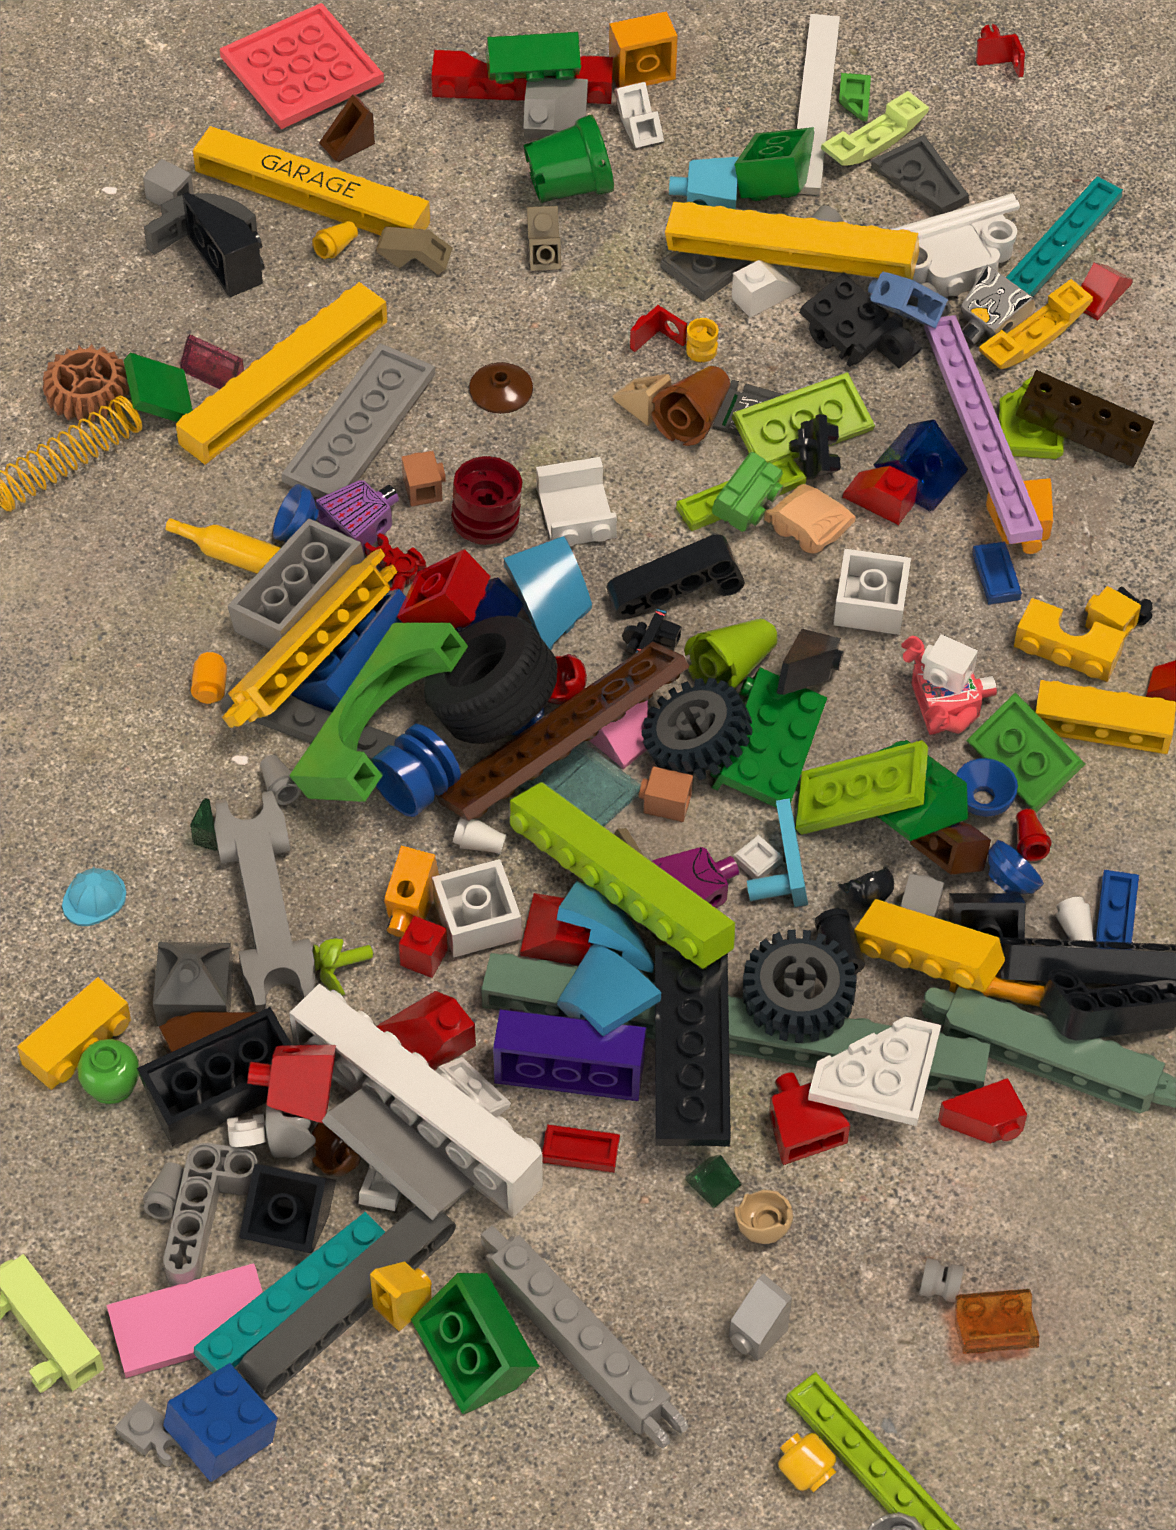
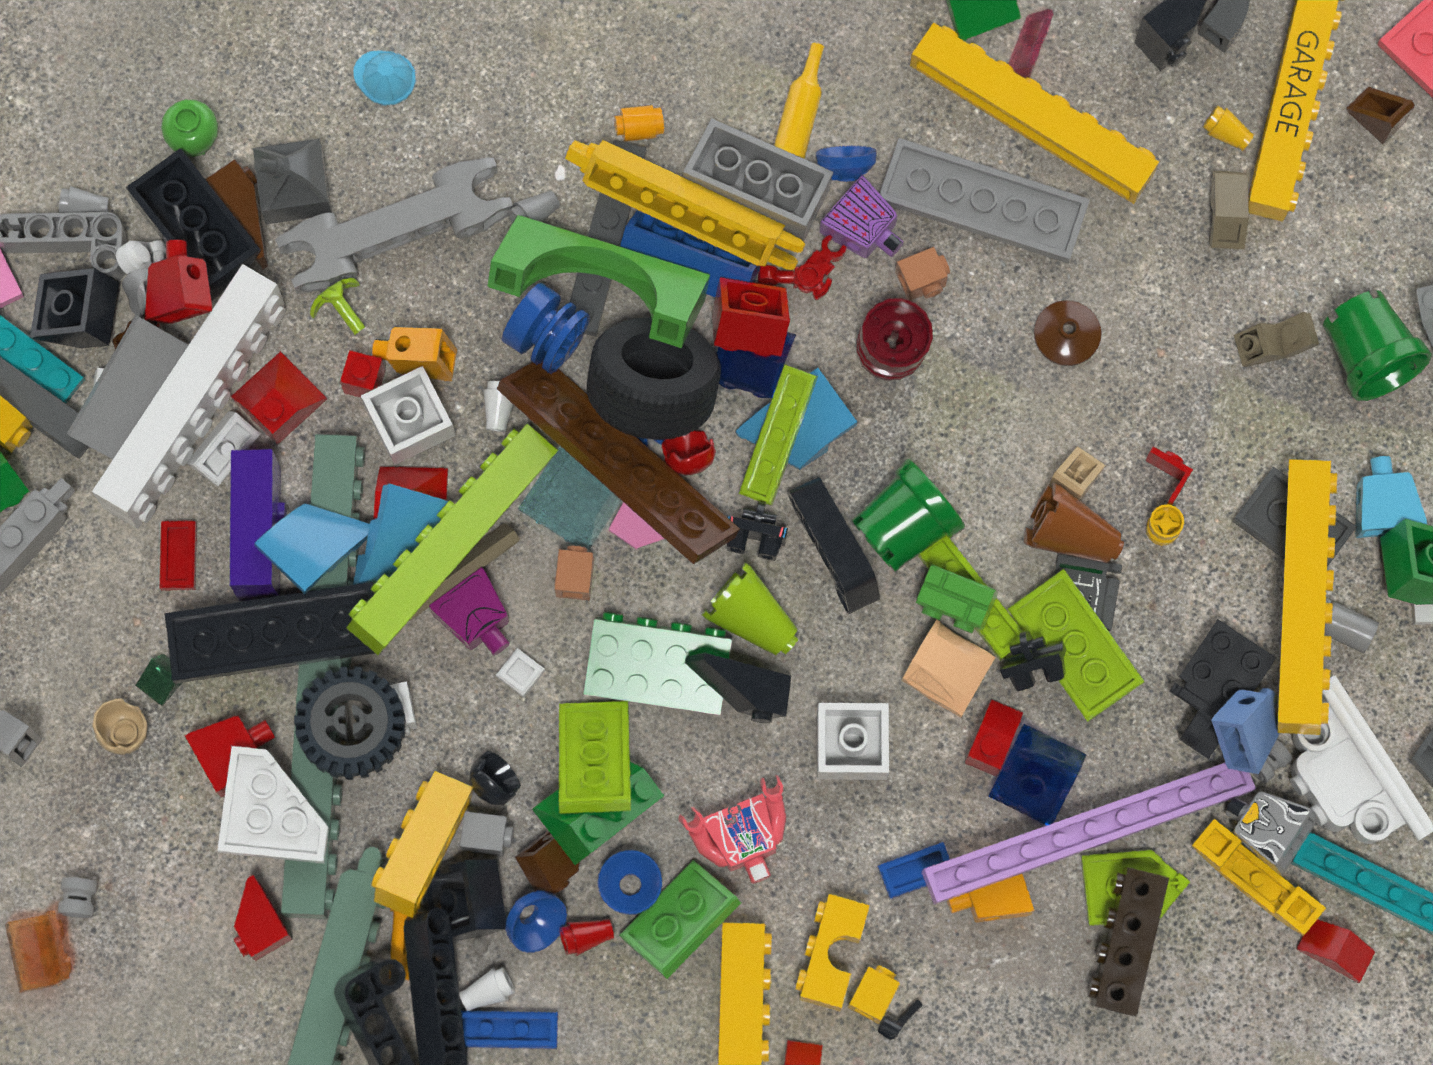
camera: 80 degrees right, 20 degrees up
(57, 1045) = (228, 92): yellow brick -> none
(203, 827) = (469, 151): clear green slope -> none
(561, 604) = (778, 434): none -> lime tile
(575, 501) = (920, 430): white panel -> none
(662, 506) = (907, 517): none -> green piece
(719, 716) = (643, 571): black wheel -> none
(761, 287) = (1256, 580): white slope -> none
(786, 883) = (494, 709): medium azure piece -> none
(838, 927) = (423, 760): black piece -> none
(949, 664) = (754, 824): white brick -> none

